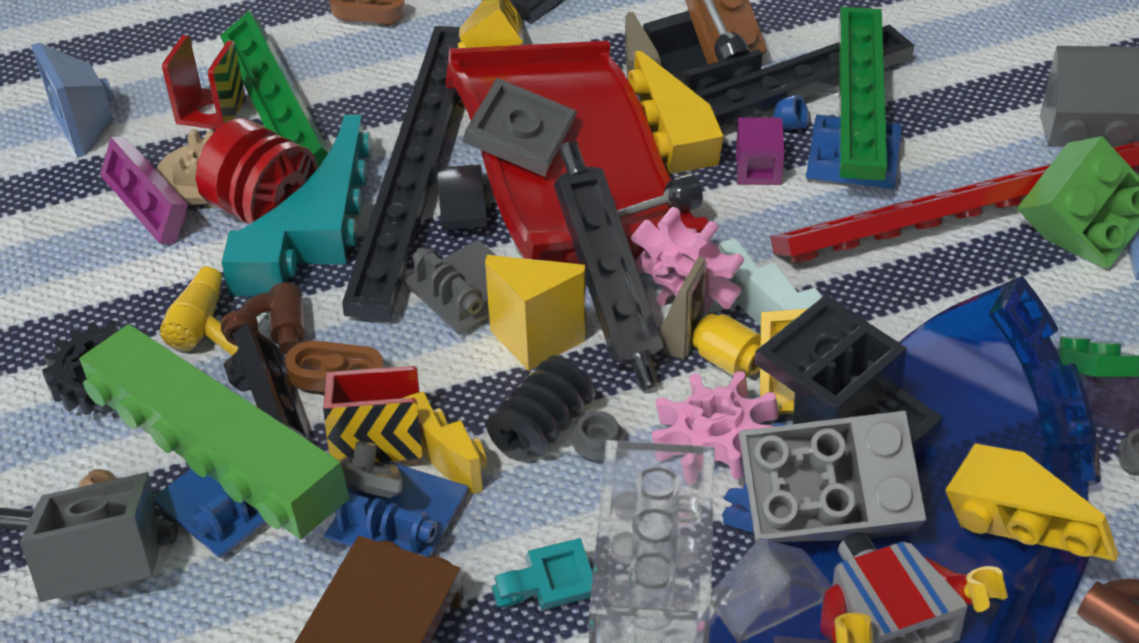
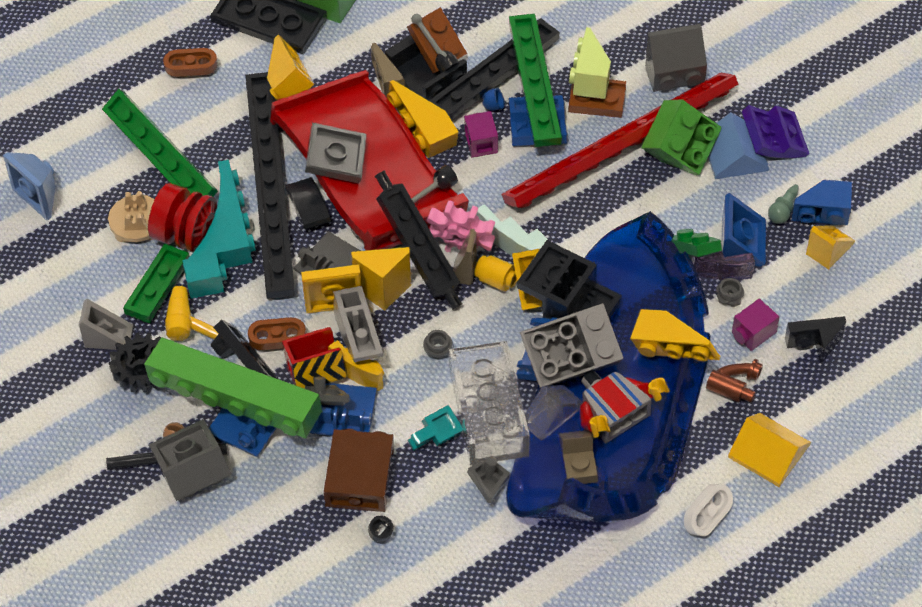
camera: 15 degrees left, 10 degrees up
(62, 300) = (101, 327): none -> light grey slope
(143, 190) = (109, 239): magenta plate -> none
(176, 264) = (156, 283): none -> green plate
(185, 87) = (104, 159): red piece -> none
(285, 312) = (234, 307): copper plant -> none
(444, 312) = (320, 284): none -> yellow tile
(463, 372) = (356, 324): none -> light grey slope
(540, 409) = (403, 334): black piece -> none
(715, 418) = (500, 322): bright pink gear -> none
(953, 91) = (590, 68): none -> yellowish green slope
(956, 136) = (610, 106): none -> dark orange plate

